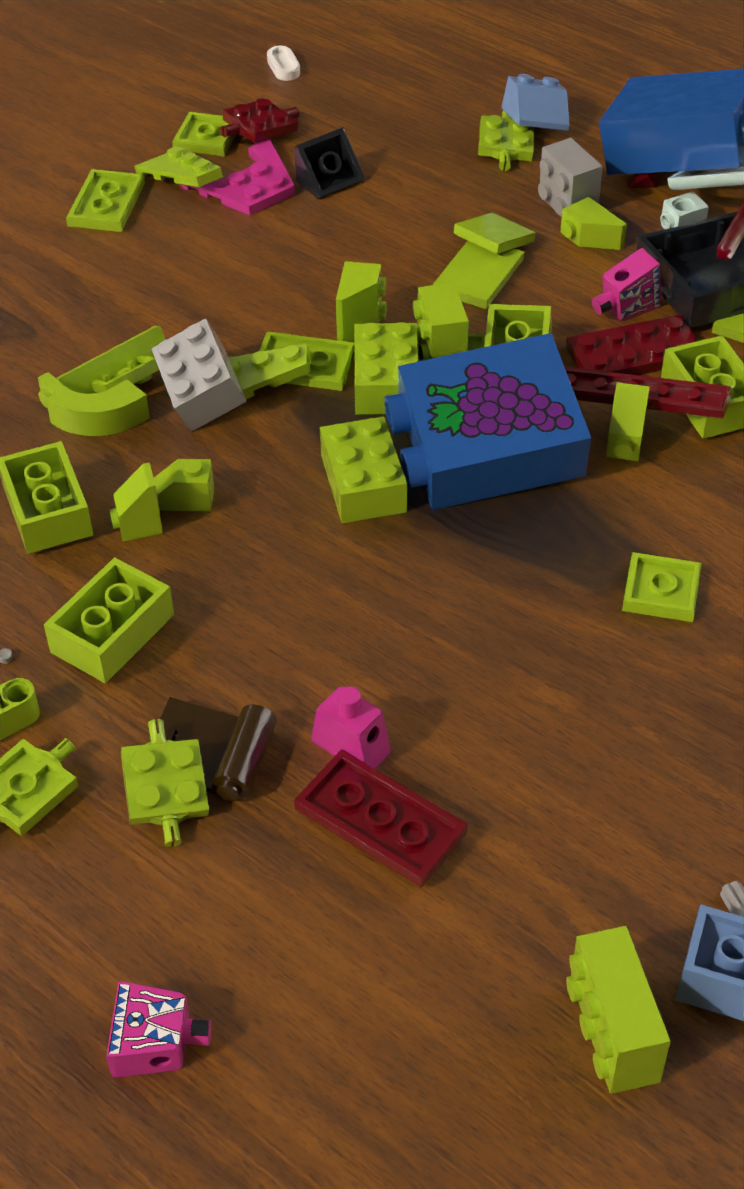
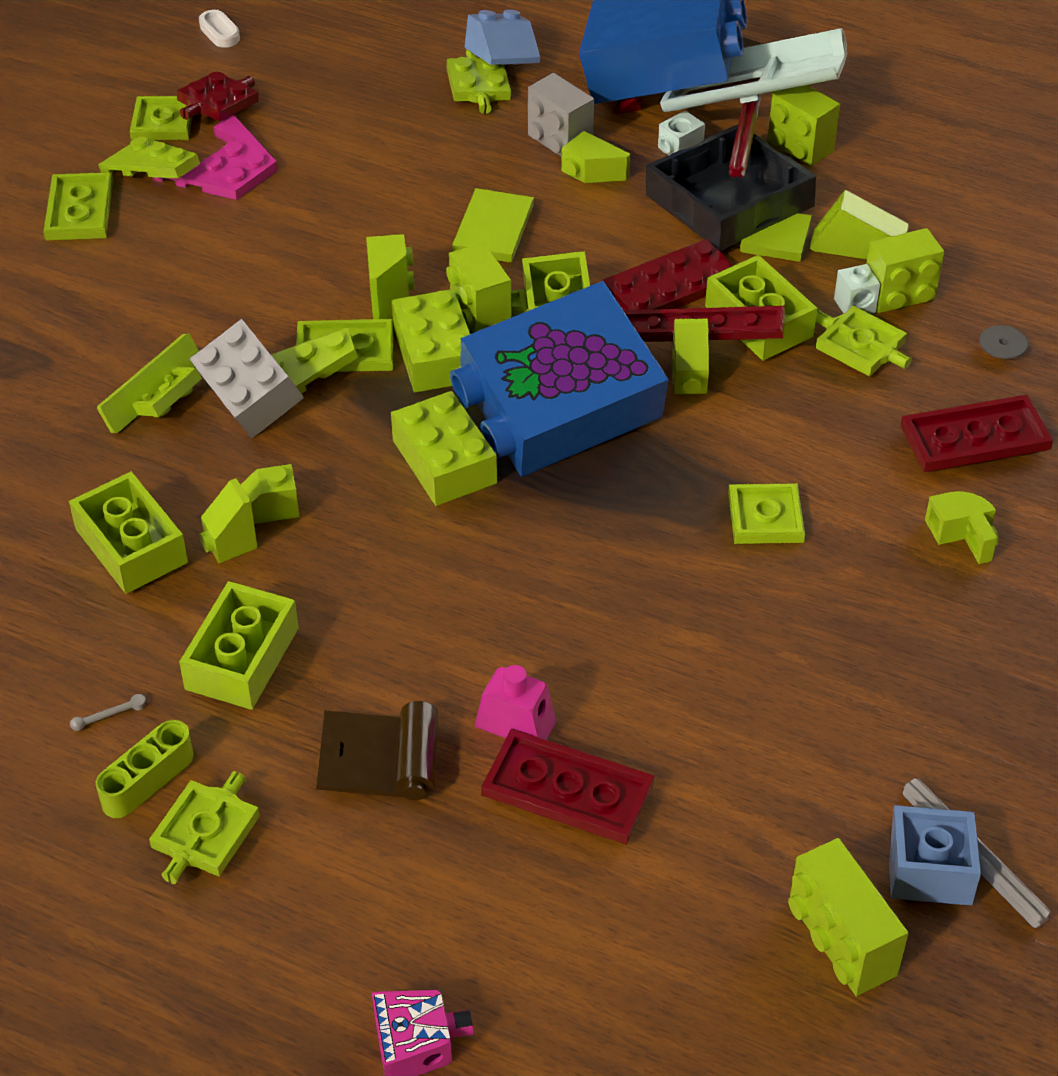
camera: 15 degrees left, 0 degrees up
(94, 413) = (143, 437): lime arch -> none
(164, 782) = (348, 794): lime plate -> none
(327, 164) = (304, 134): black slope -> none
(494, 233) = (498, 182): lime tile -> none
(630, 287) = (652, 218): dark pink torso -> none

